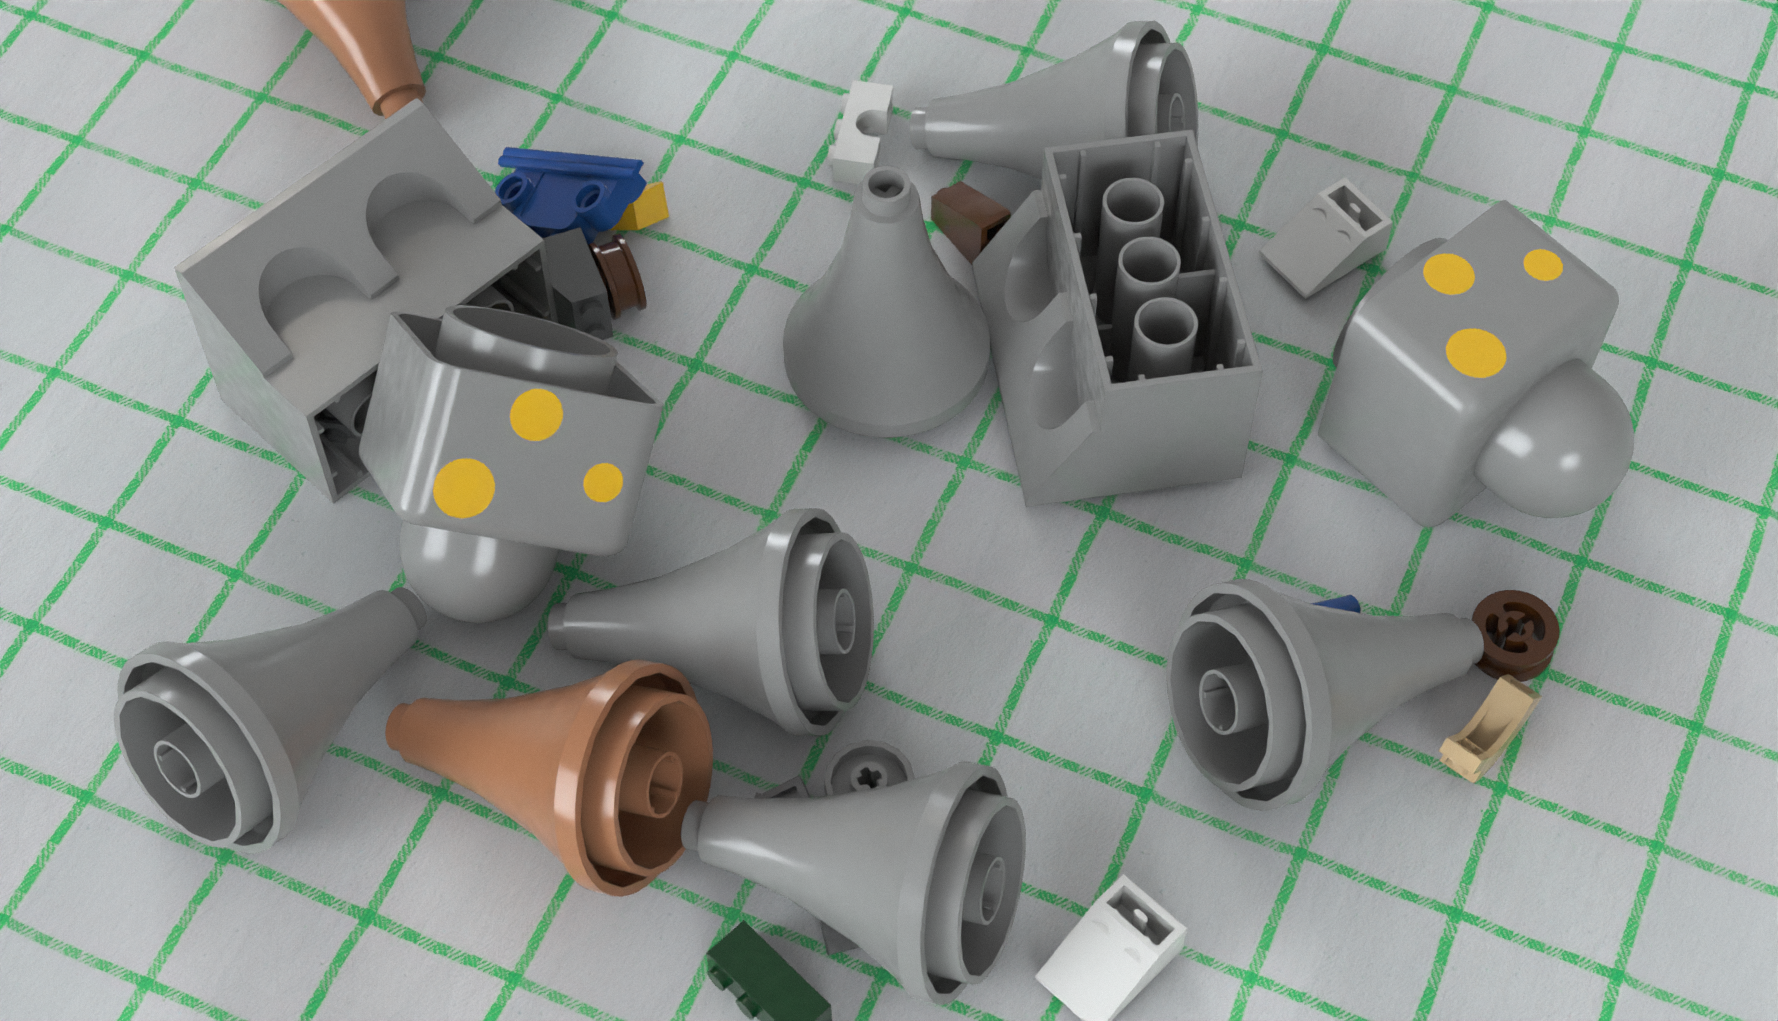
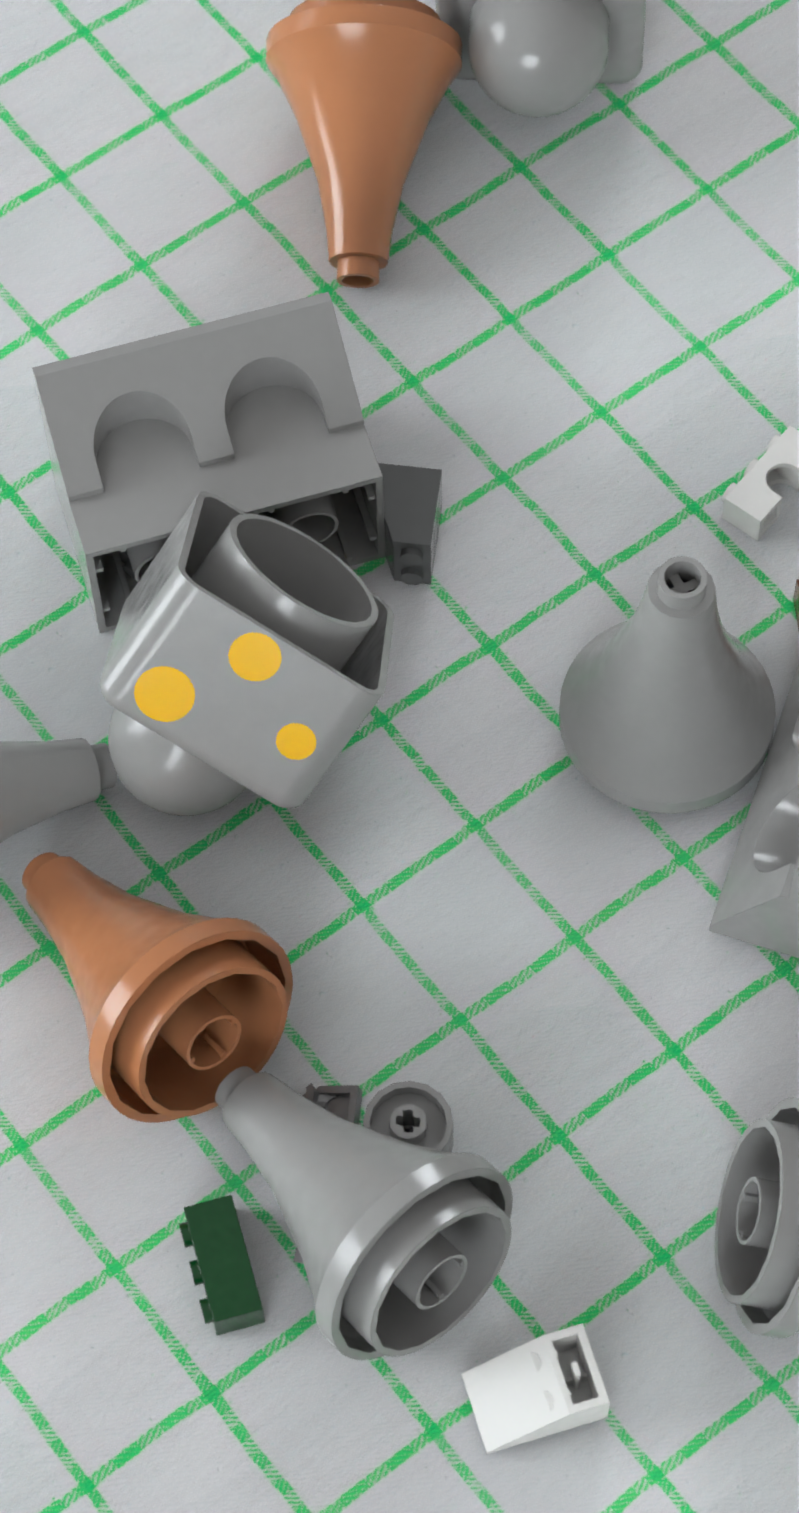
camera: 30 degrees right, 5 degrees up
(568, 190) = (453, 426): blue brick -> none
(619, 275) = (456, 529): reddish brown wheel -> none
(646, 210) = (513, 464): yellow slope -> none
(764, 622) = (394, 934): light grey piece -> none

